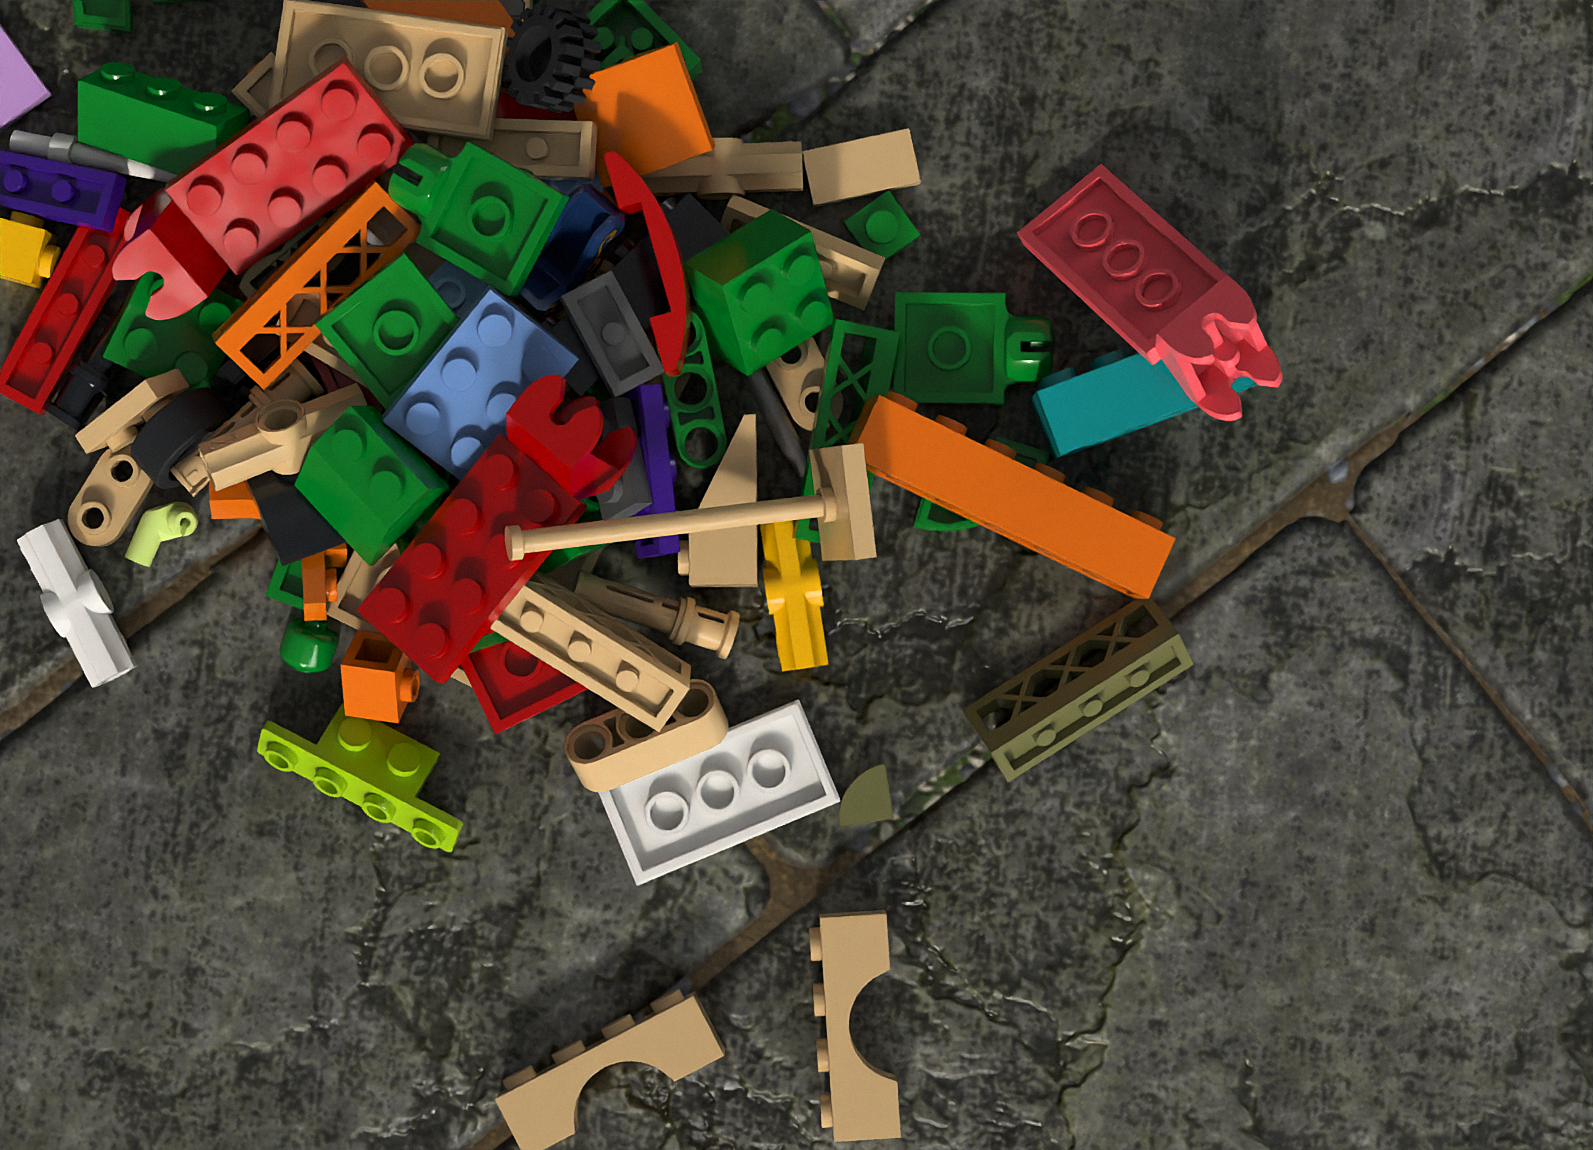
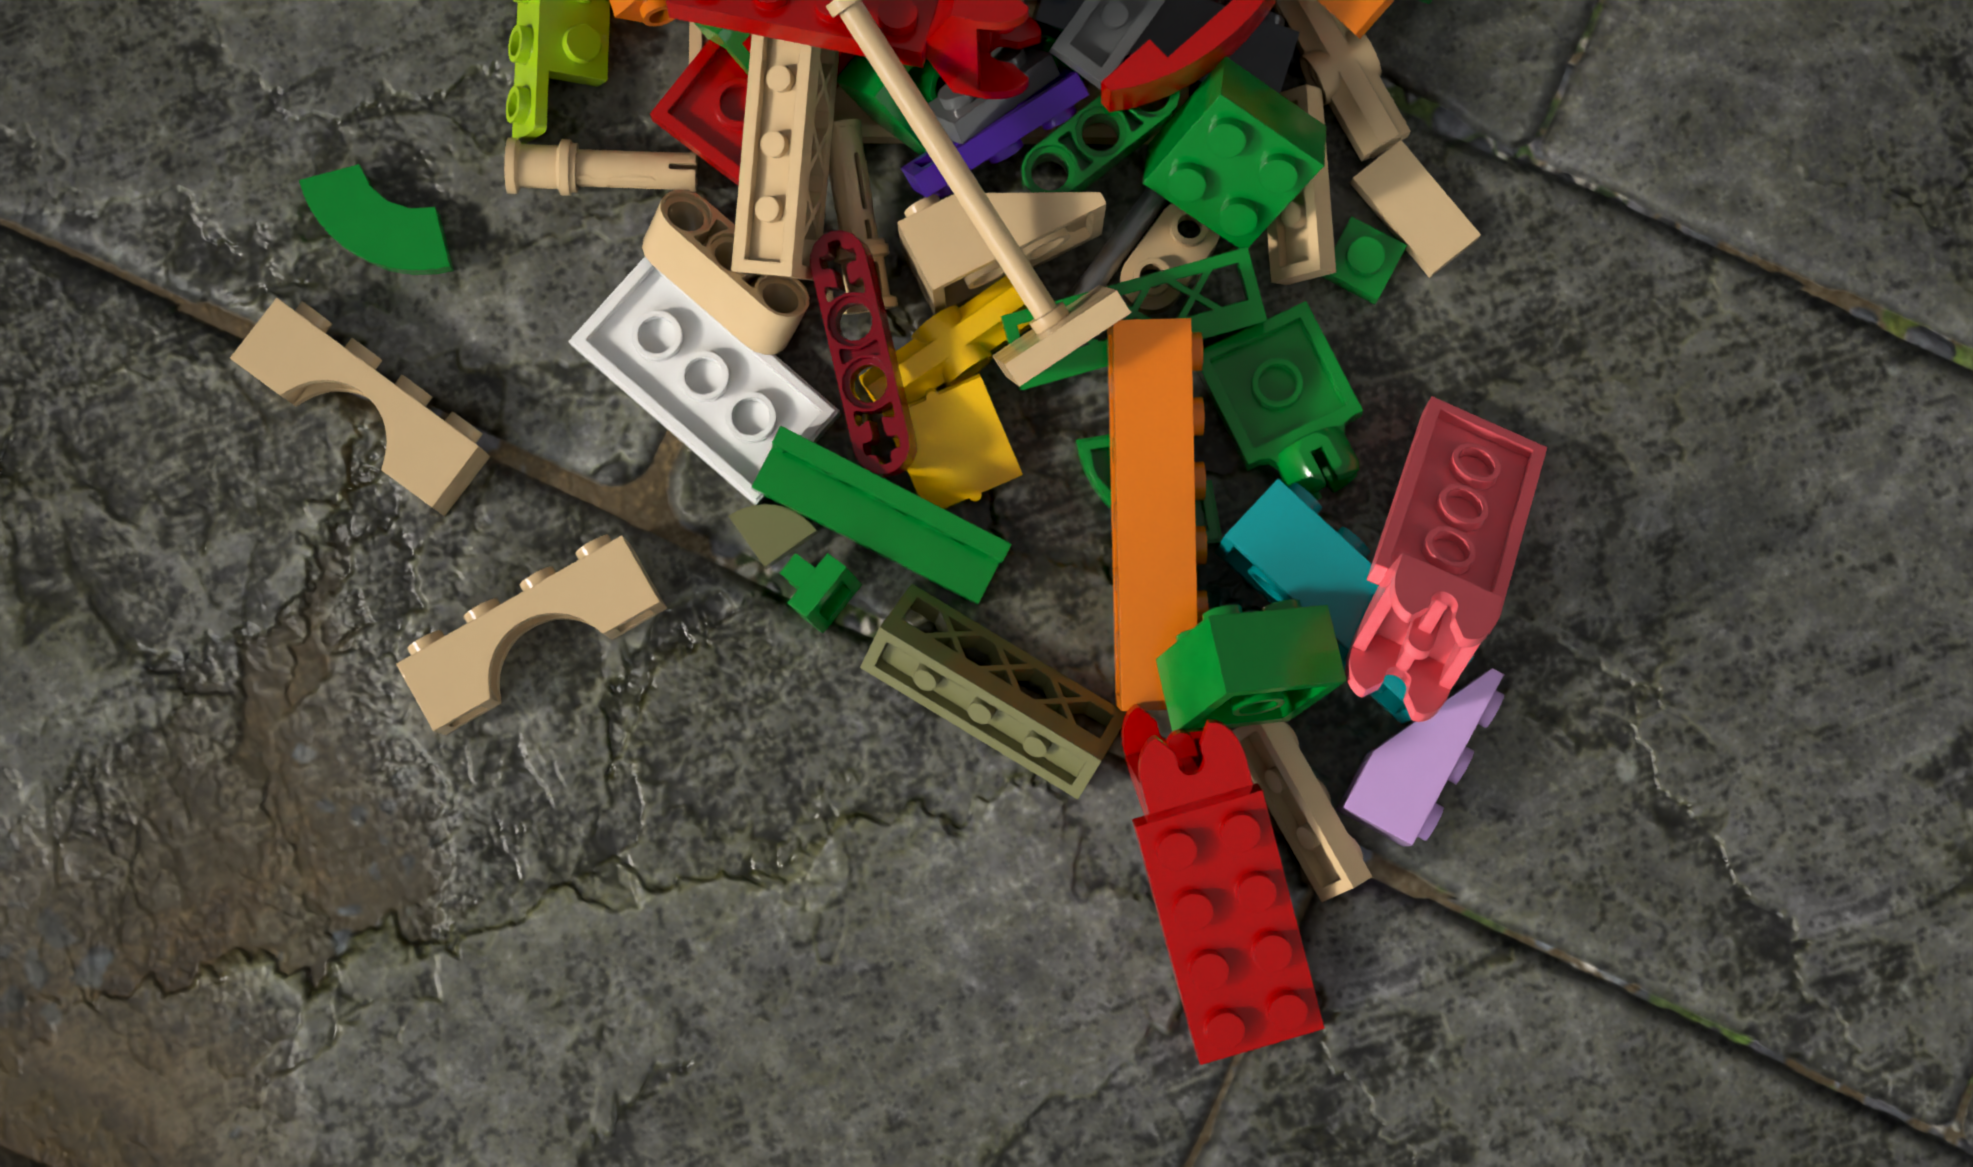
camera: 65 degrees right, 5 degrees down
(467, 995) = (374, 228): none -> green tile
(496, 818) = (568, 168): none -> tan pin
(773, 650) = (856, 355): none -> dark red beam
(871, 624) = (958, 444): none -> yellow piece
(900, 709) = (880, 515): none -> green fence
(935, 783) = (820, 590): none -> green tile
(1170, 486) = (1250, 666): none -> green brick
(1283, 496) = (1302, 809): none -> tan plate
(1304, 409) = (1405, 774): none -> lavender slope
(1314, 591) = (1218, 889): none -> red hinge

